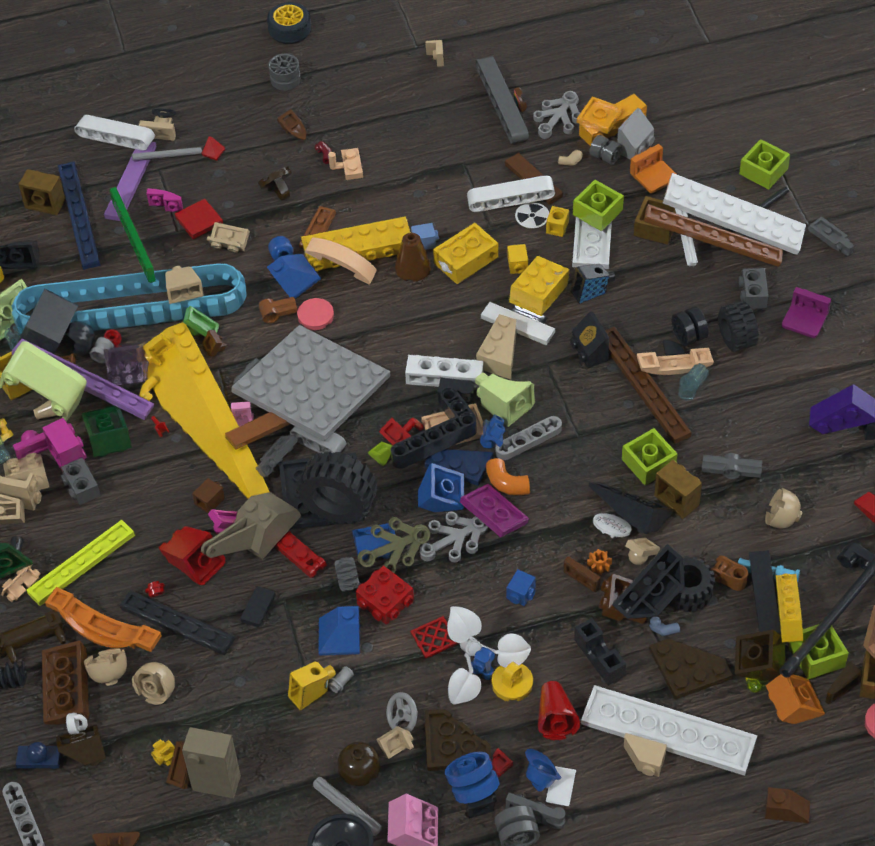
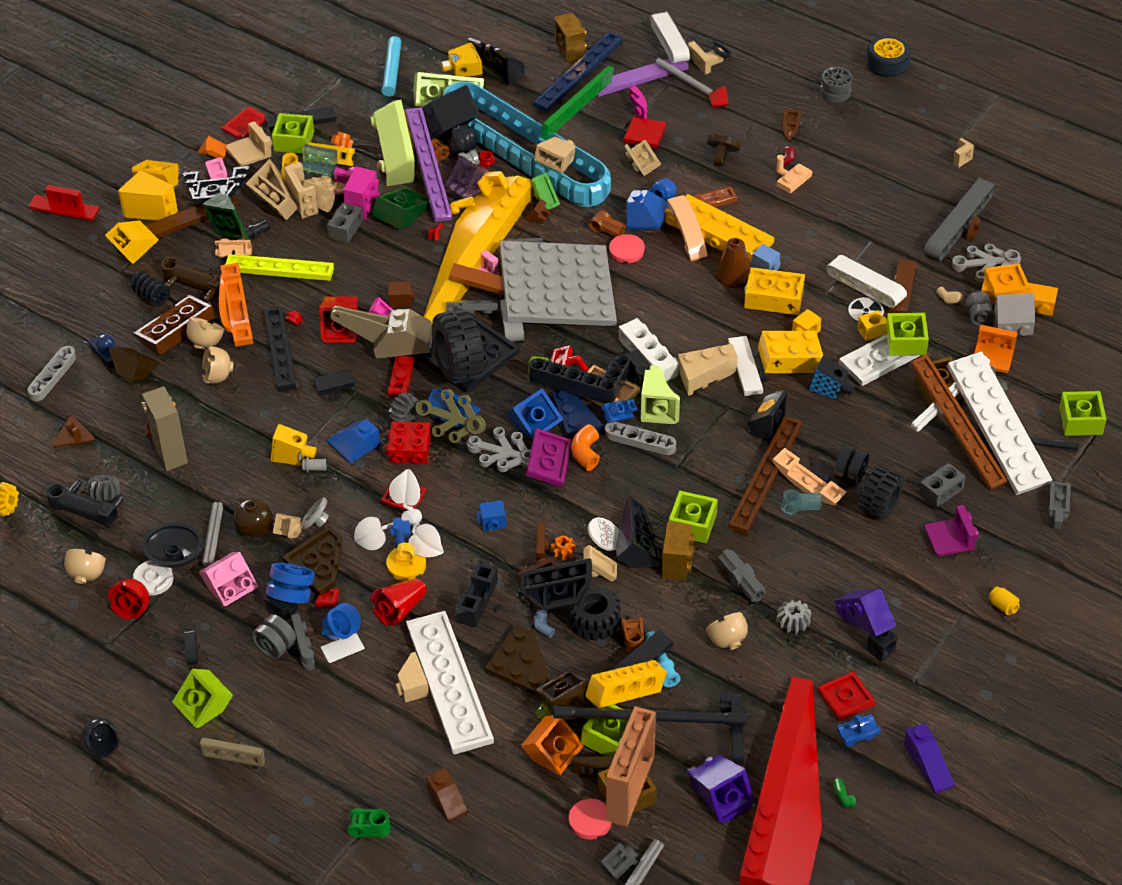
camera: 50 degrees right, 5 degrees down
(72, 722) = (143, 346): white tile -> none
(801, 460) = (794, 616): none -> light grey gear

